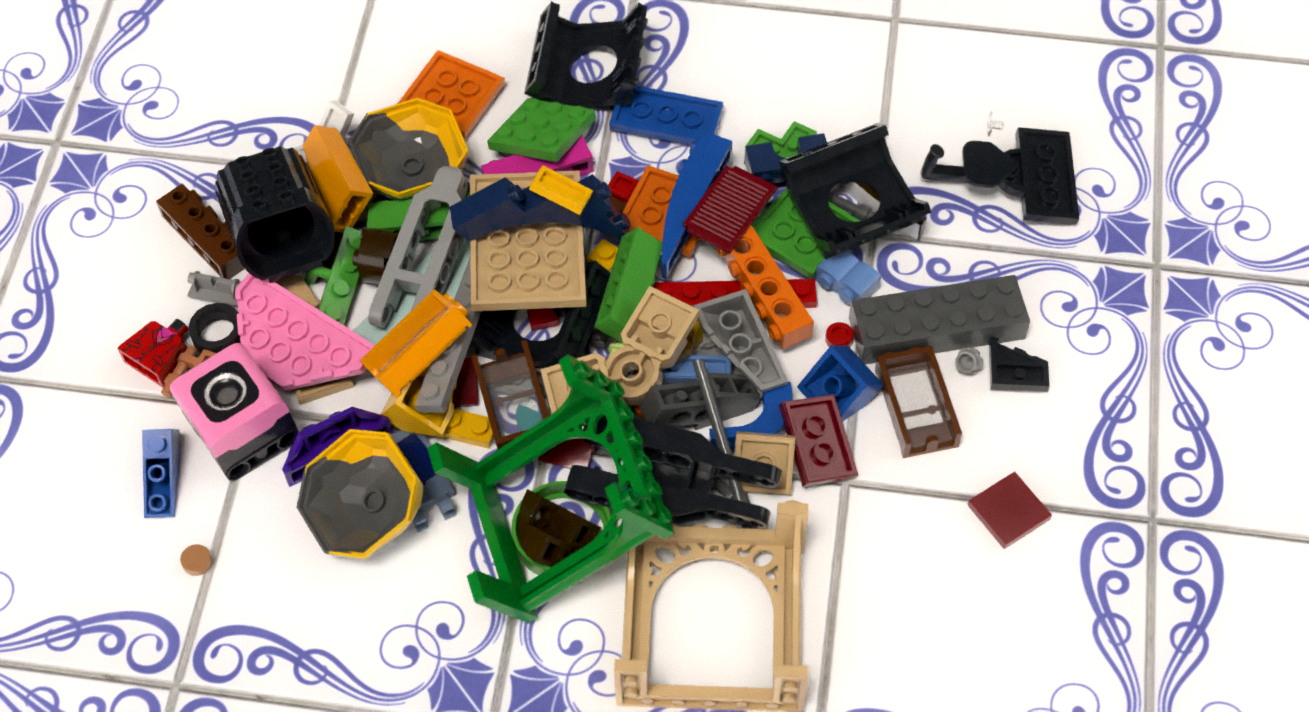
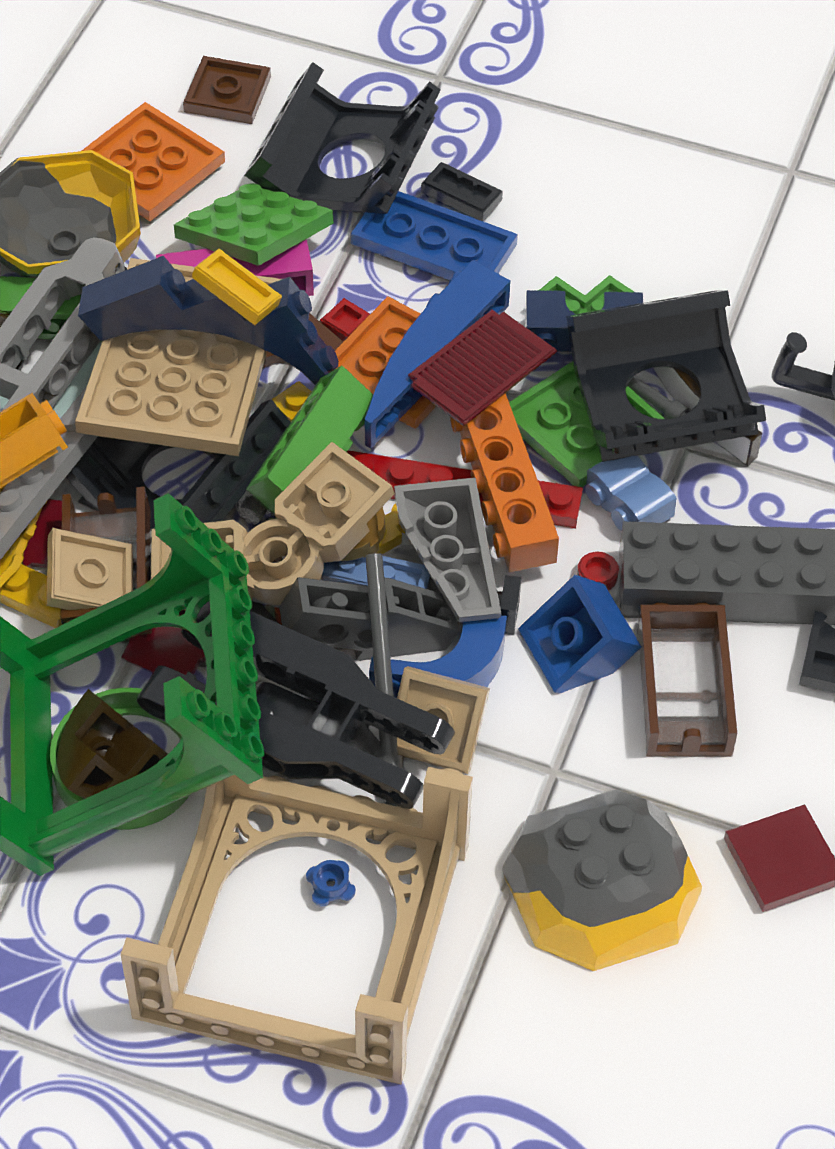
camera: 10 degrees right, 5 degrees down
(490, 28) = (227, 89): none -> reddish brown tile
(505, 407) = (86, 570): none -> tan tile
(542, 318) = (181, 467): red tile -> none
(676, 76) = (461, 191): none -> black plate
(721, 579) = (330, 871): none -> blue plate
(788, 366) = (509, 601): none -> black plate
(820, 440) = (526, 704): dark red tile -> none
(896, 548) = (602, 880): none -> dark grey rock
(963, 364) = (767, 640): light grey plate -> none

